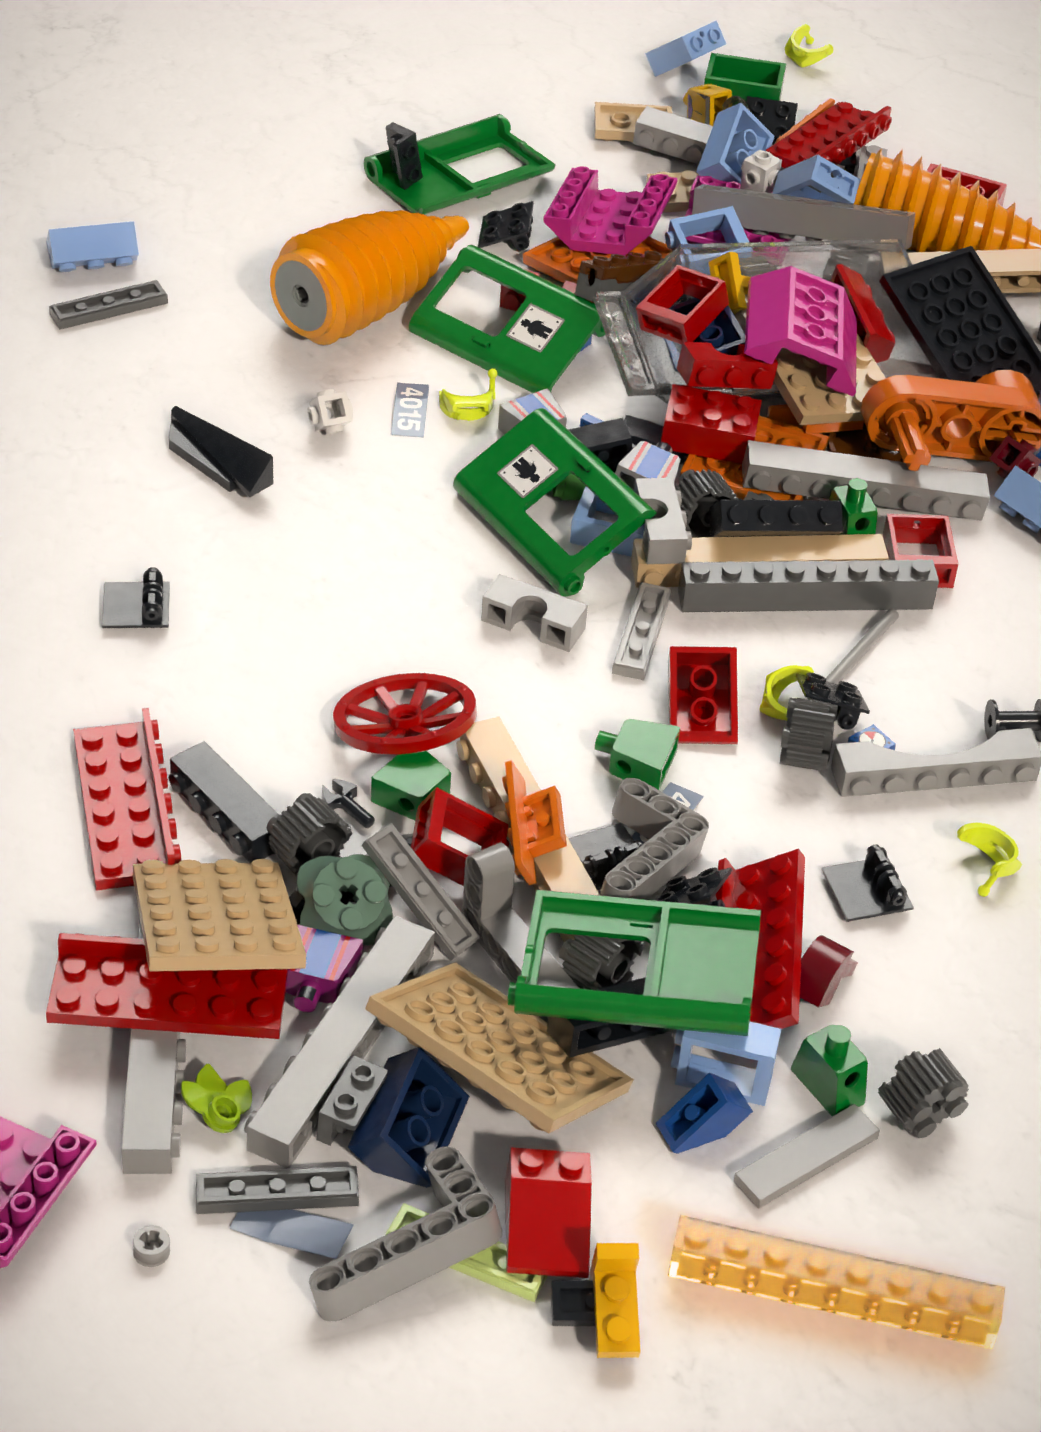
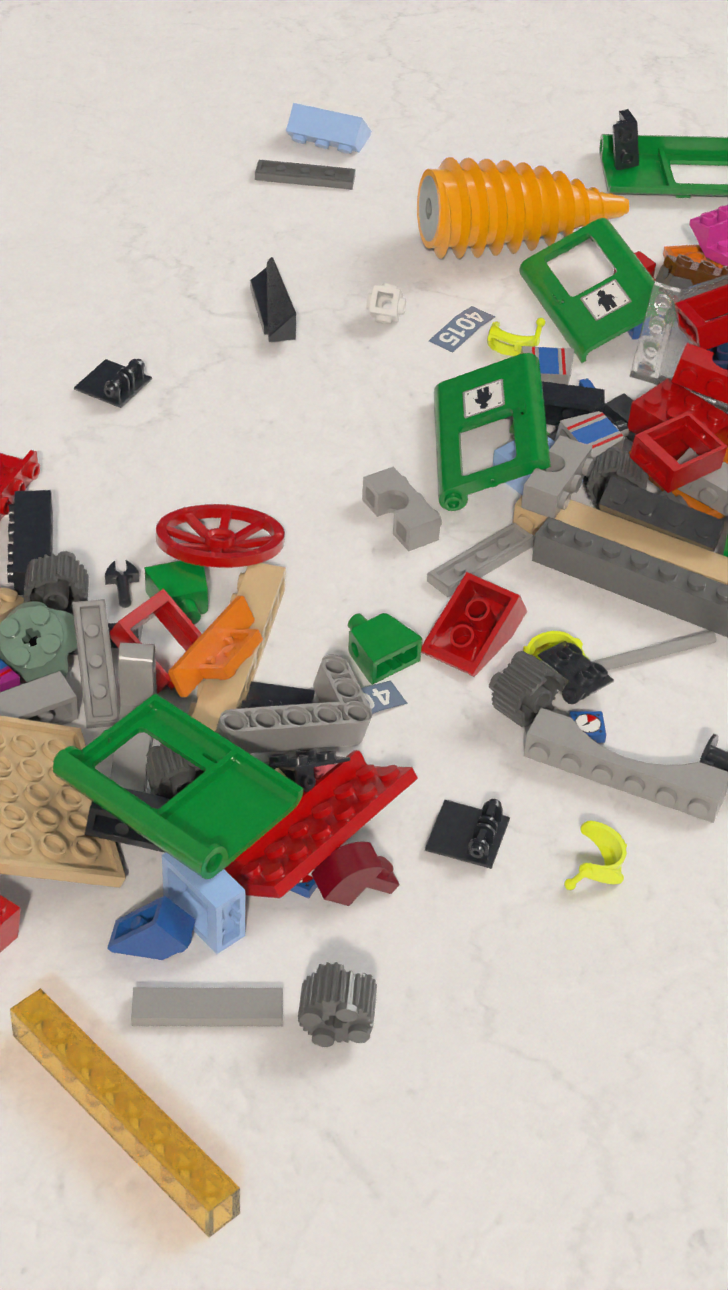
camera: 35 degrees right, 0 degrees up
(508, 224) = (674, 224): black hinge -> none
(744, 467) = (663, 468): none -> red window
(832, 1068) = (283, 939): green torso -> none

